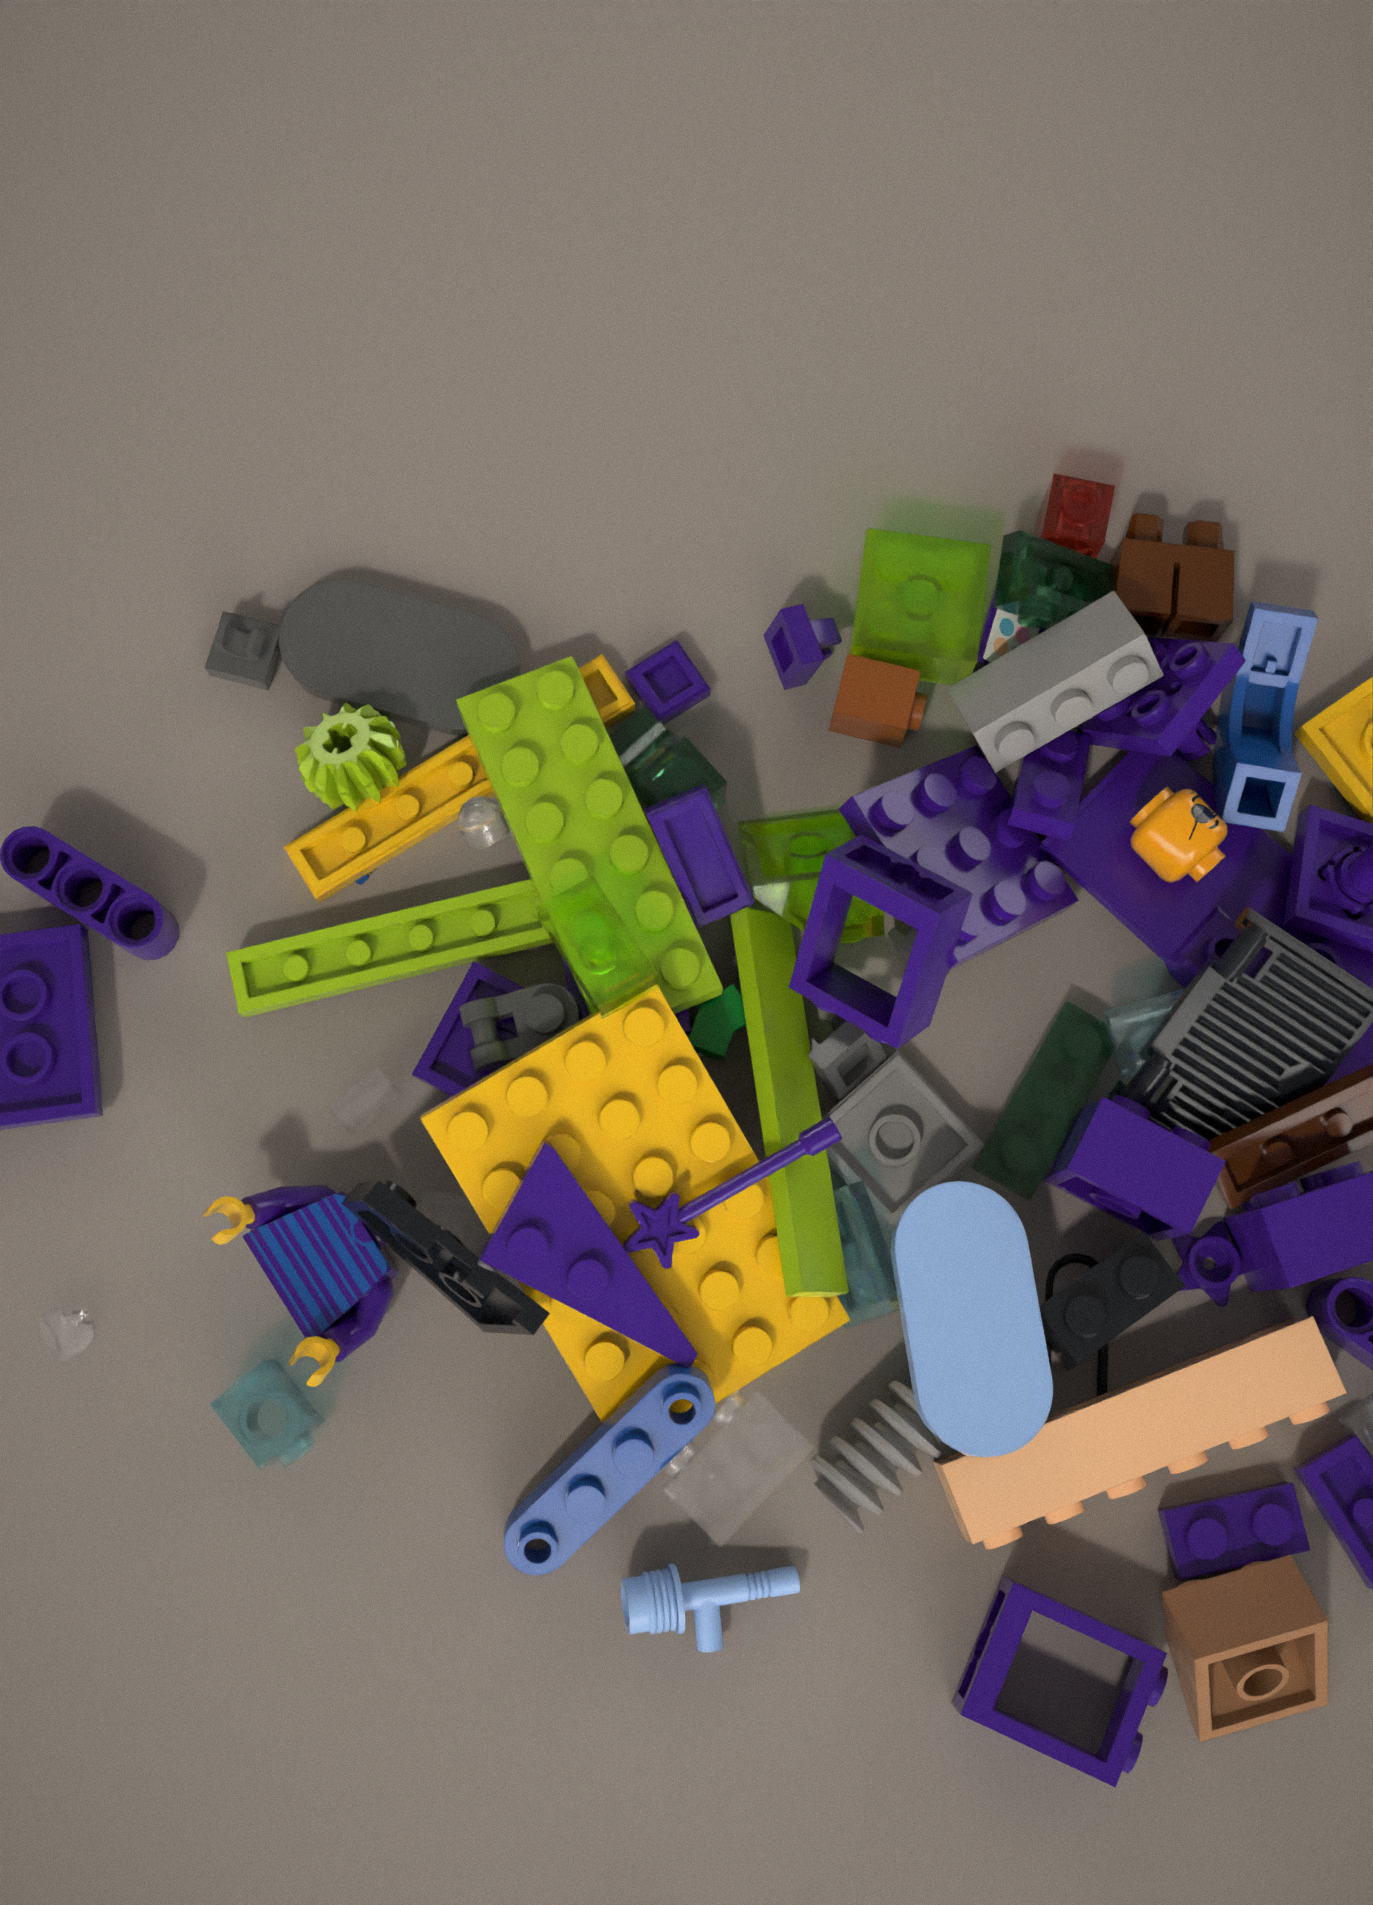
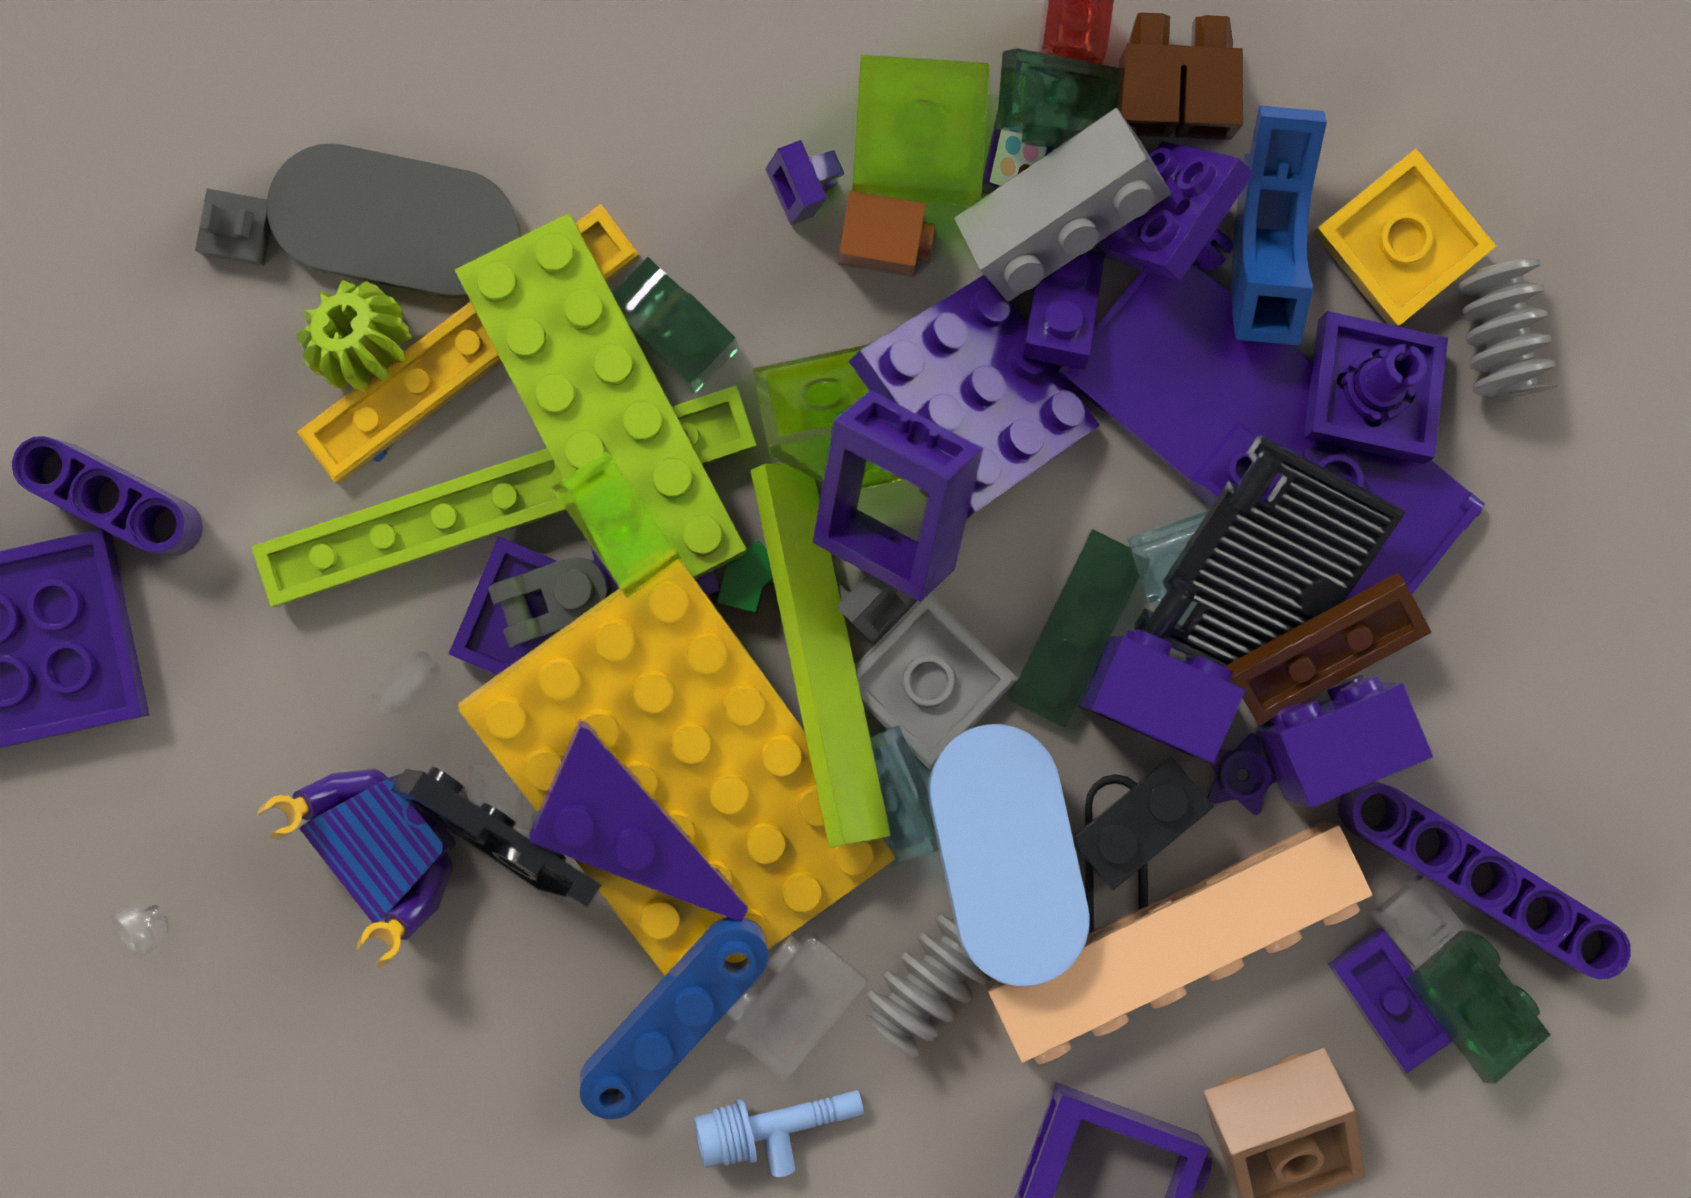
camera: 10 degrees left, 10 degrees up
(240, 1407) = (316, 992): clear light blue brick -> none
(481, 822) = (493, 393): clear hinge -> none
(668, 683) = (671, 228): dark purple tile -> none
(668, 1224) = (711, 788): dark purple piece -> none
(699, 855) = (713, 415): dark purple tile -> none
(1178, 835) = (1194, 356): light orange head -> none
(1233, 1530) = (1272, 1025): dark purple plate -> none

